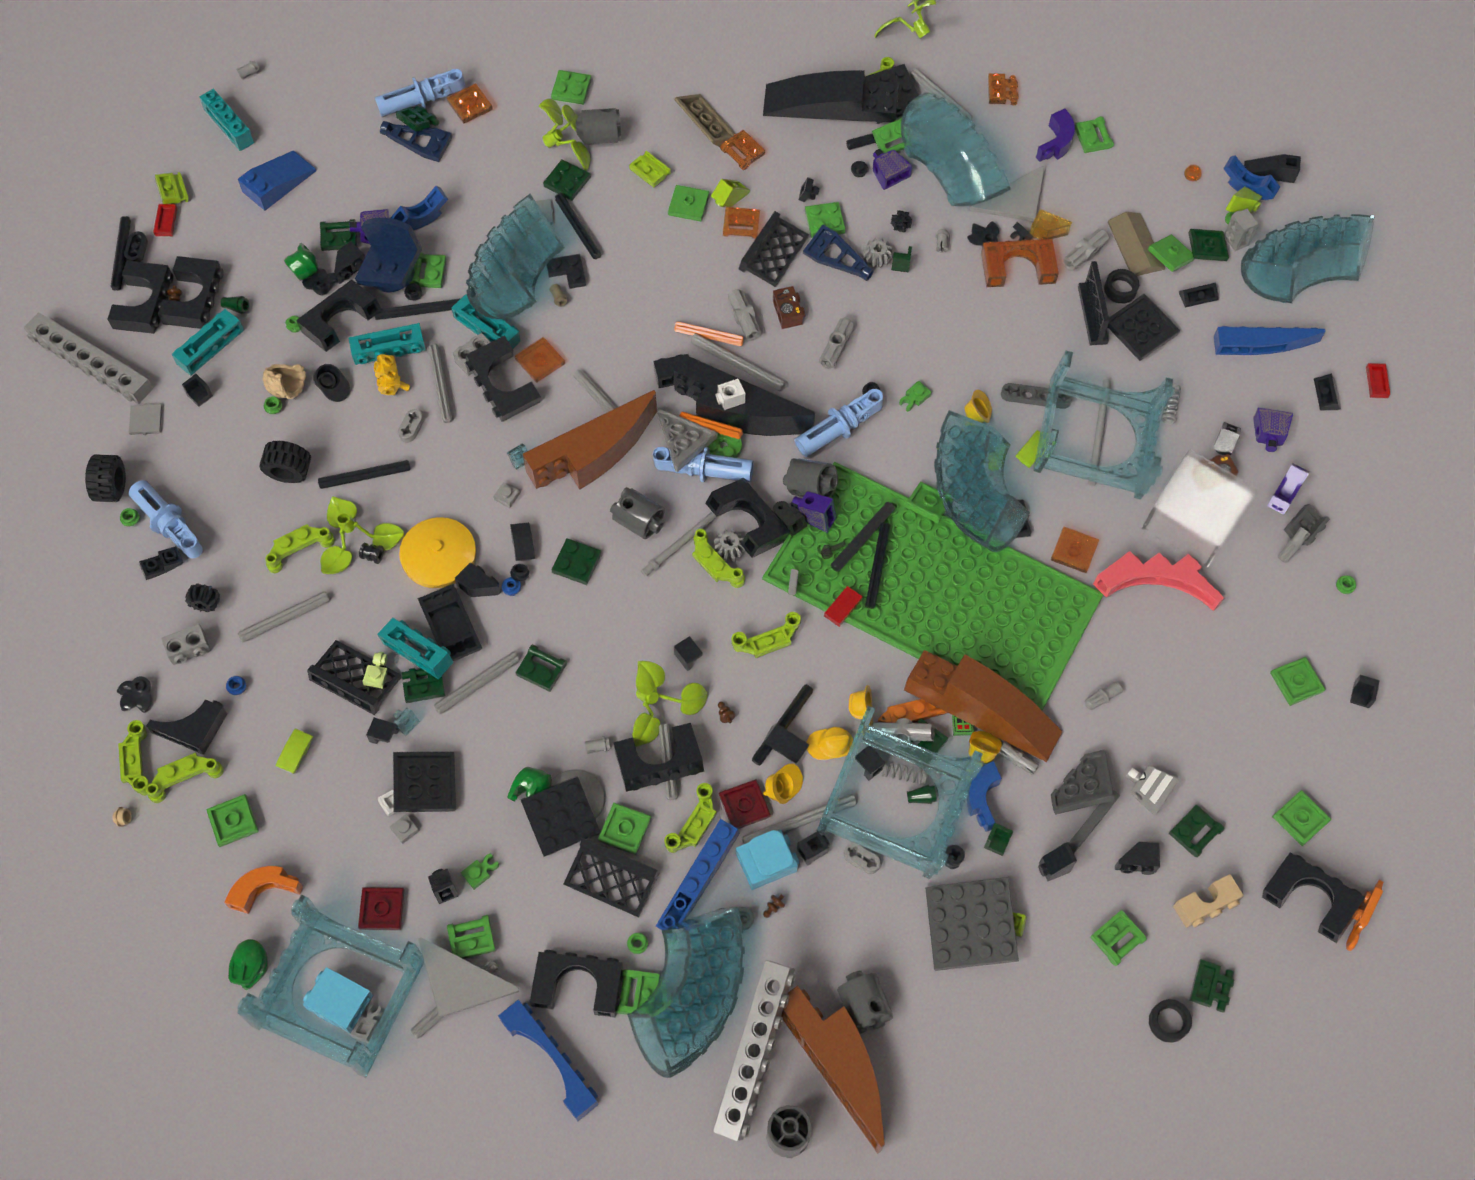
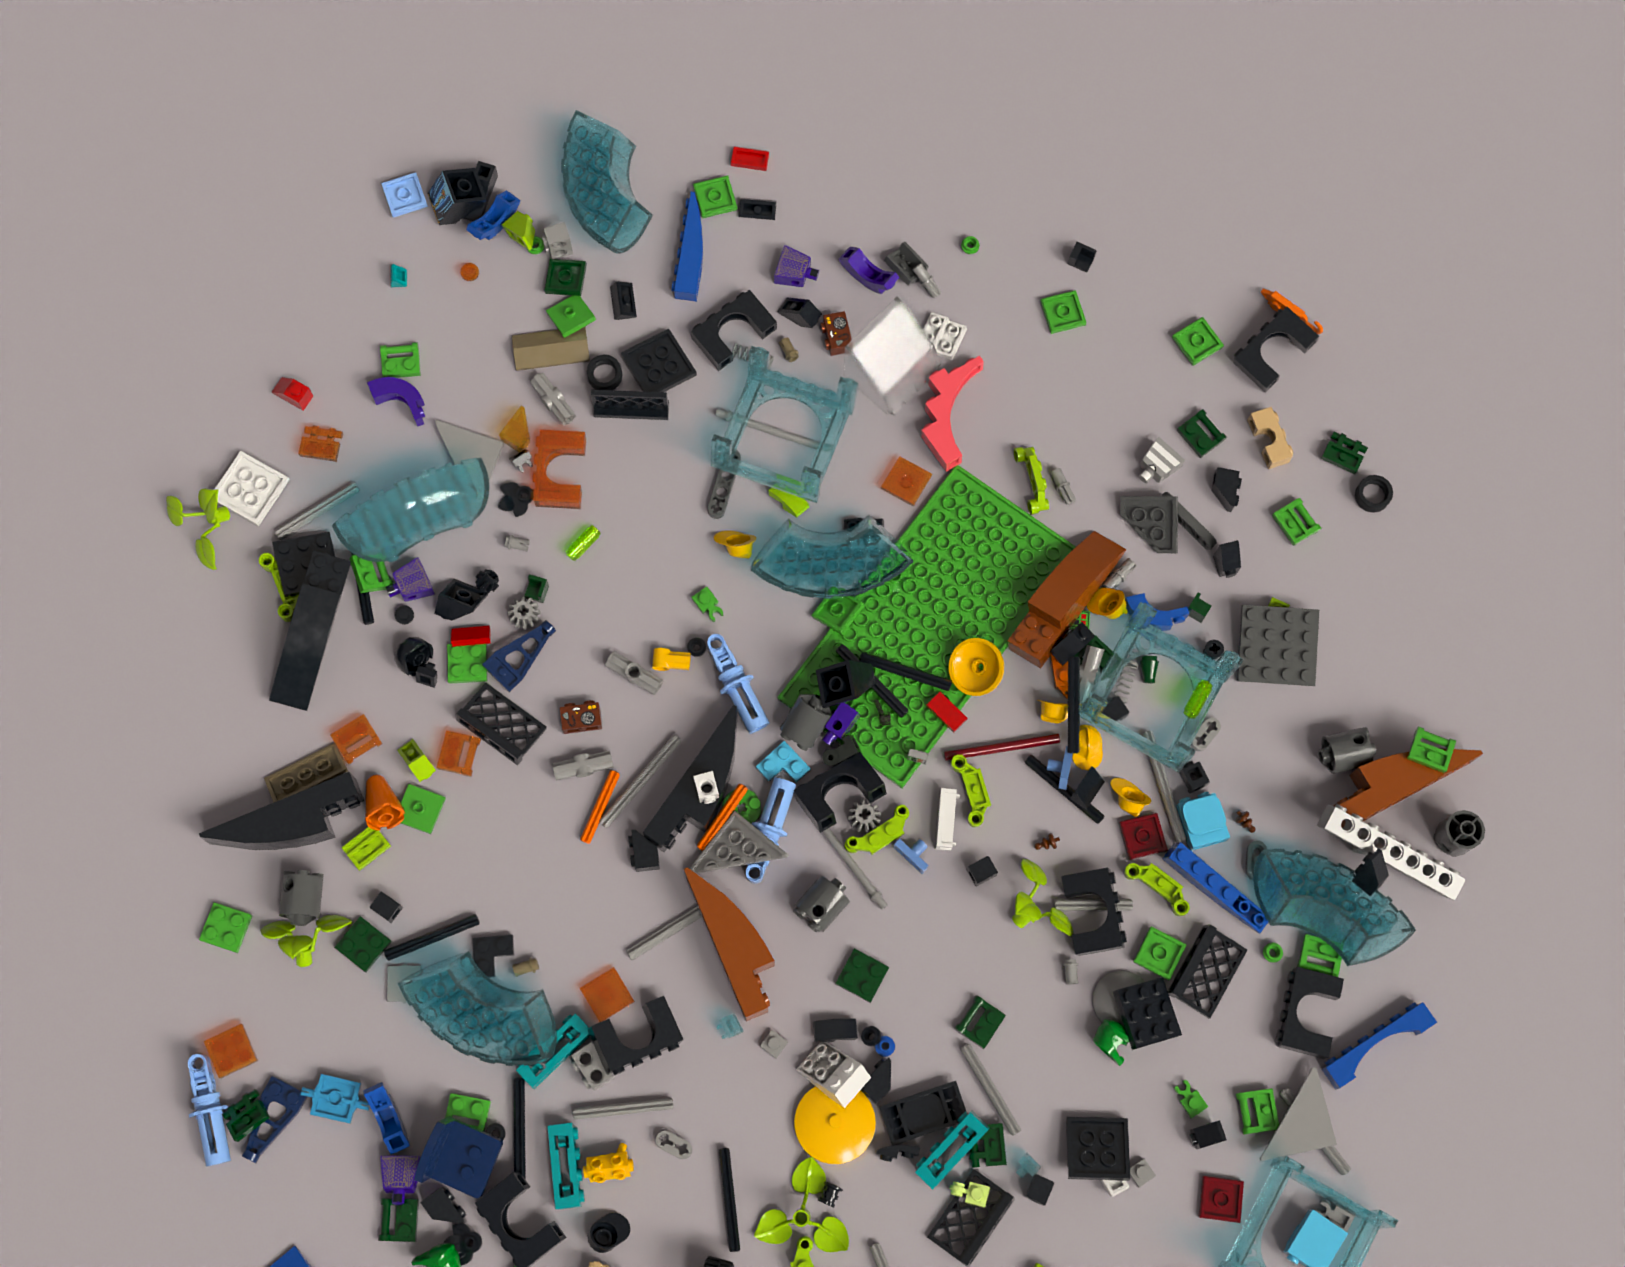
camera: 85 degrees left, 10 degrees up
(413, 606) = (891, 1152): none -> black slope
(435, 173) = (335, 1098): none -> dark azure plate
(479, 541) = (834, 1073): none -> white slope
(599, 188) = (386, 907): none -> black panel
(666, 114) = (292, 820): none -> black slope
(686, 169) = (381, 804): none -> orange cone
(697, 590) = (912, 854): none -> medium blue tile
(727, 1024) = (1371, 874): none -> black slope
(736, 616) = (946, 817): none -> white container
(774, 473) = (783, 758): none -> medium azure plate
(802, 717) = (1062, 767): none -> medium blue tile
(817, 665) = (1003, 746): none -> dark red piece
(824, 175) = (413, 653): none -> black cylinder
(849, 217) = (471, 636): none -> red tile
(853, 499) = (844, 681): none -> black slope
(854, 366) = (665, 659): none -> yellow piece
(858, 713) = (1073, 704): none -> black axle
(867, 1082) = (1430, 755): none -> bright green plate
(880, 201) = (458, 600): none -> black slope
(891, 622) = (965, 666): none -> yellow dish
(895, 839) = (1198, 699): none -> clear neon green piece
(933, 712) = (1072, 643): none -> black slope
(950, 46) = (250, 488): none -> white plate
(953, 290) = (582, 543): none -> clear neon green piece
(1042, 65) = (293, 392): none -> red slope
(1126, 656) = (1037, 482): none -> lime plate
(1173, 121) = (398, 276): none -> teal slope
(1182, 435) = (788, 349): none -> dark tan pin
(1184, 363) = (744, 308): none -> black arch
(1238, 568) = (944, 335): none -> white slope
(1252, 115) = (404, 194): none -> light blue plate
(1262, 145) = (456, 195): none -> black slope
(1327, 354) = (715, 196): none -> bright green plate

